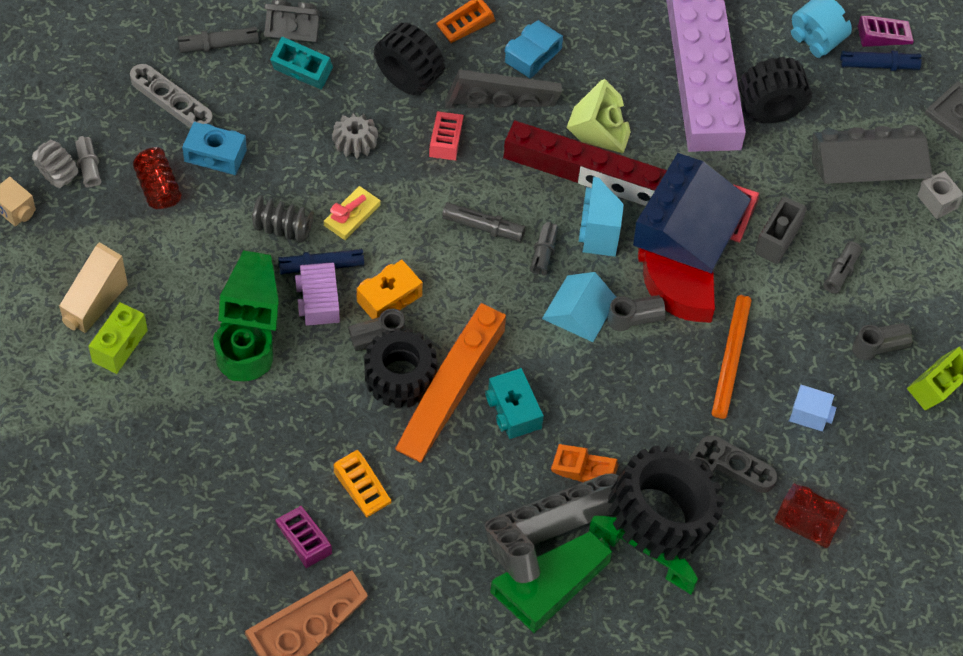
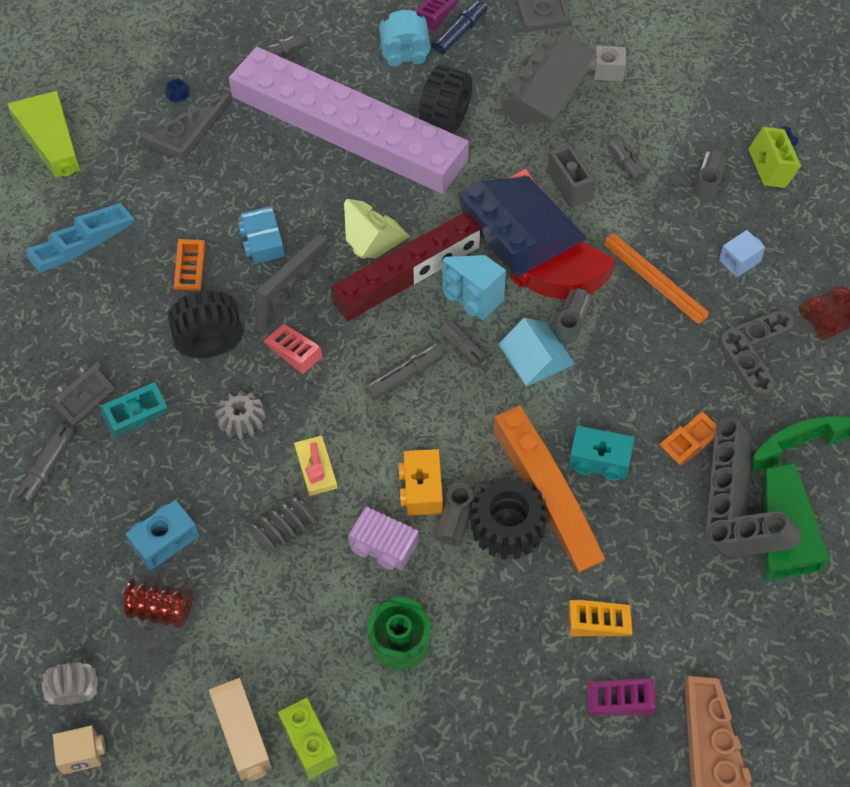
camera: 50 degrees left, 0 degrees up
(87, 162) = (84, 654): light grey axle -> none
(171, 98) = (73, 537): light grey beam -> none
(251, 293) = (357, 589): green slope -> none
(341, 259) = (350, 515): dark blue pin -> none
(680, 480) = (792, 375): black tyre -> none

